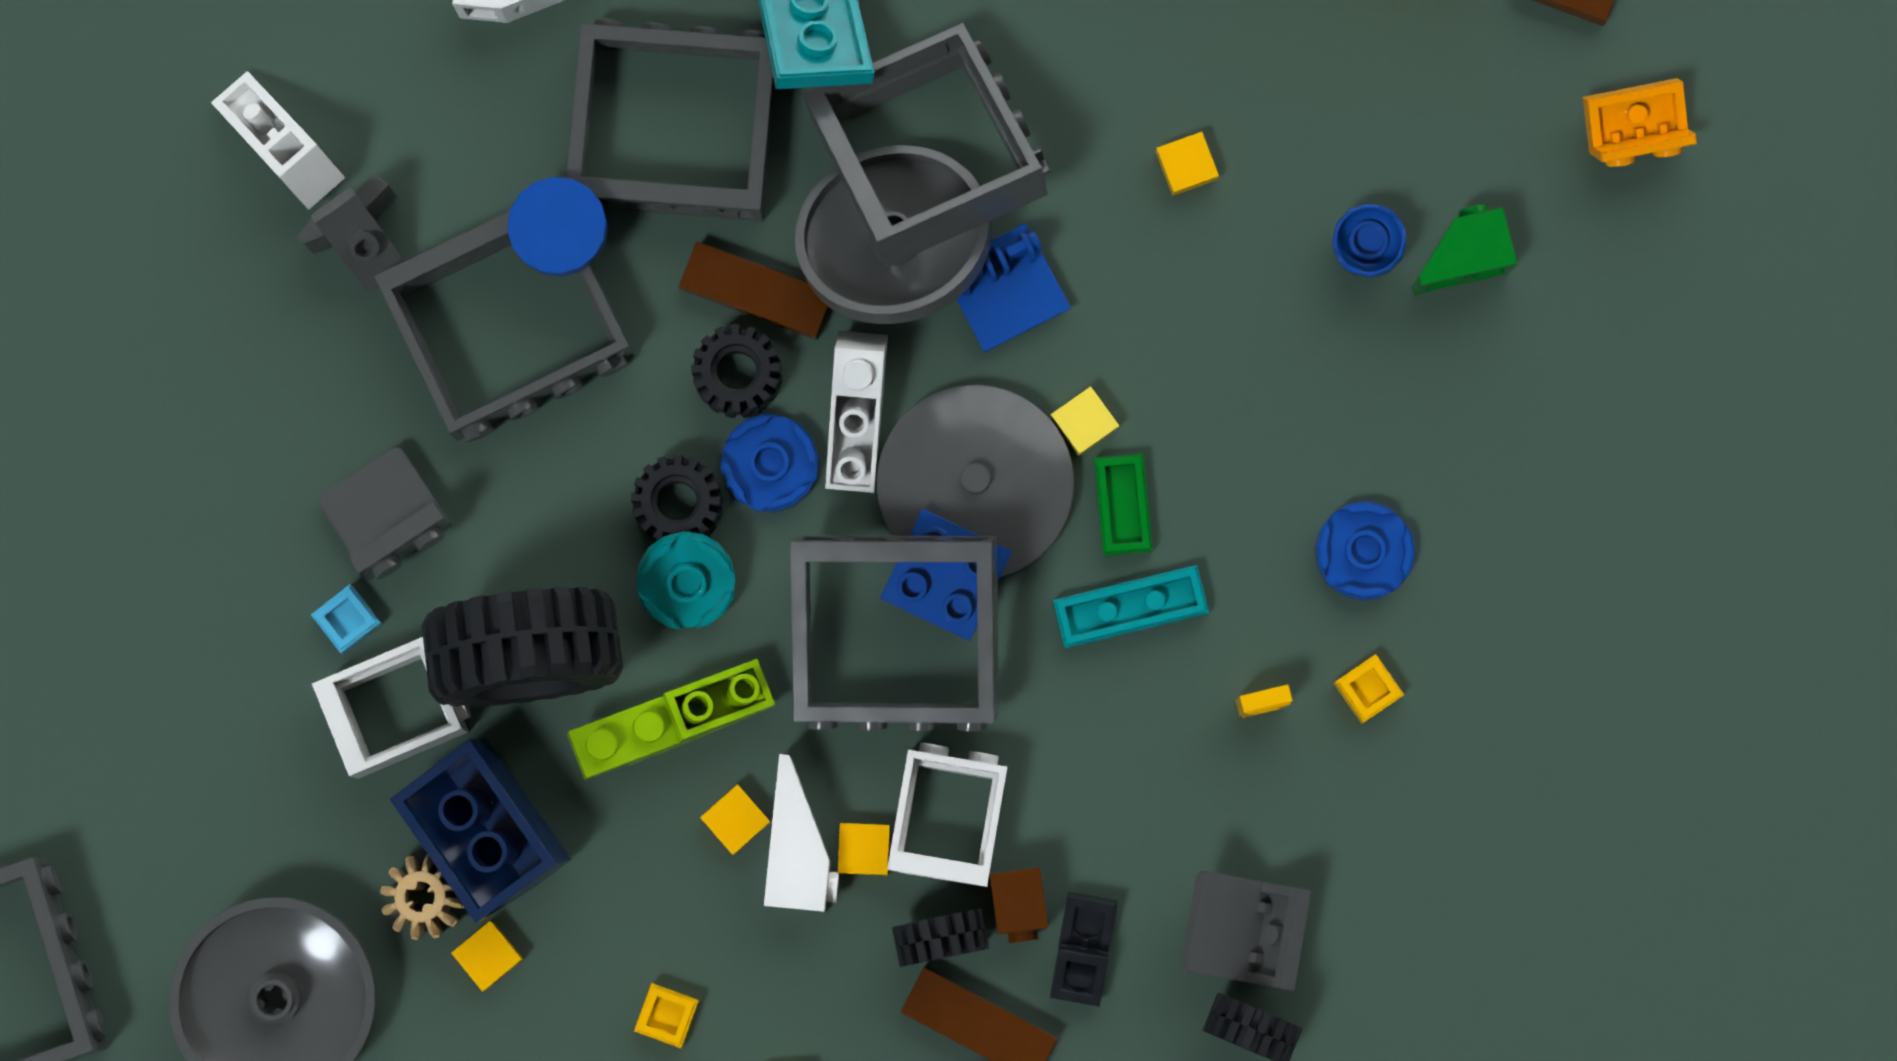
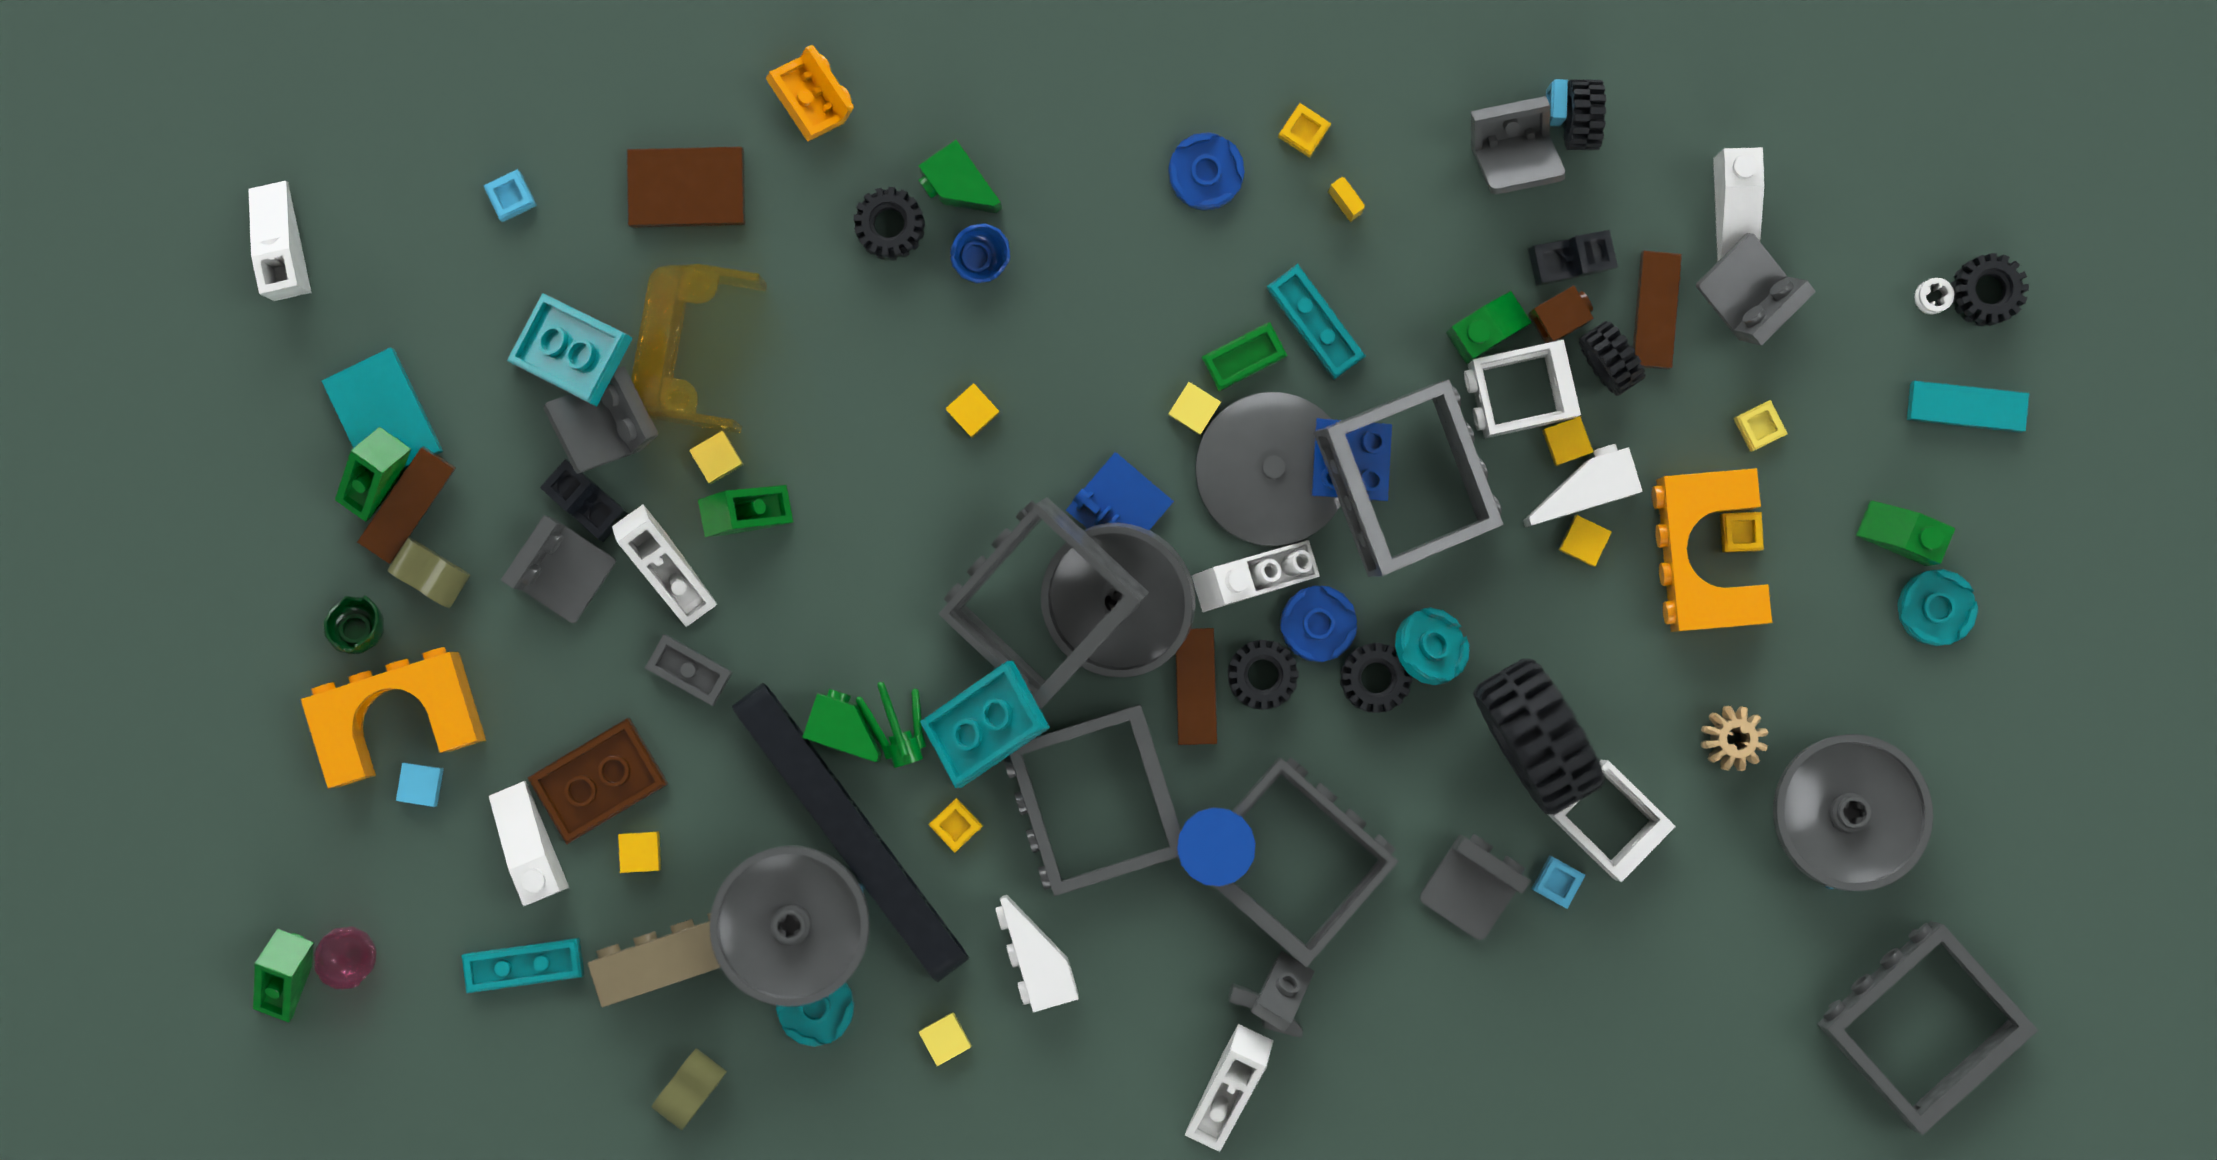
camera: 110 degrees left, 5 degrees up
(480, 828) = (1672, 716): dark blue slope -> none
(487, 956) = (1754, 676): yellow tile -> none
(604, 917) = (1691, 600): none -> light orange arch
(671, 720) = (1535, 615): lime slope -> none
(1040, 810) = (1488, 327): none -> green slope
(1281, 1005) = (1557, 98): none -> medium azure tile
(1456, 126) = (889, 200): none -> black tyre

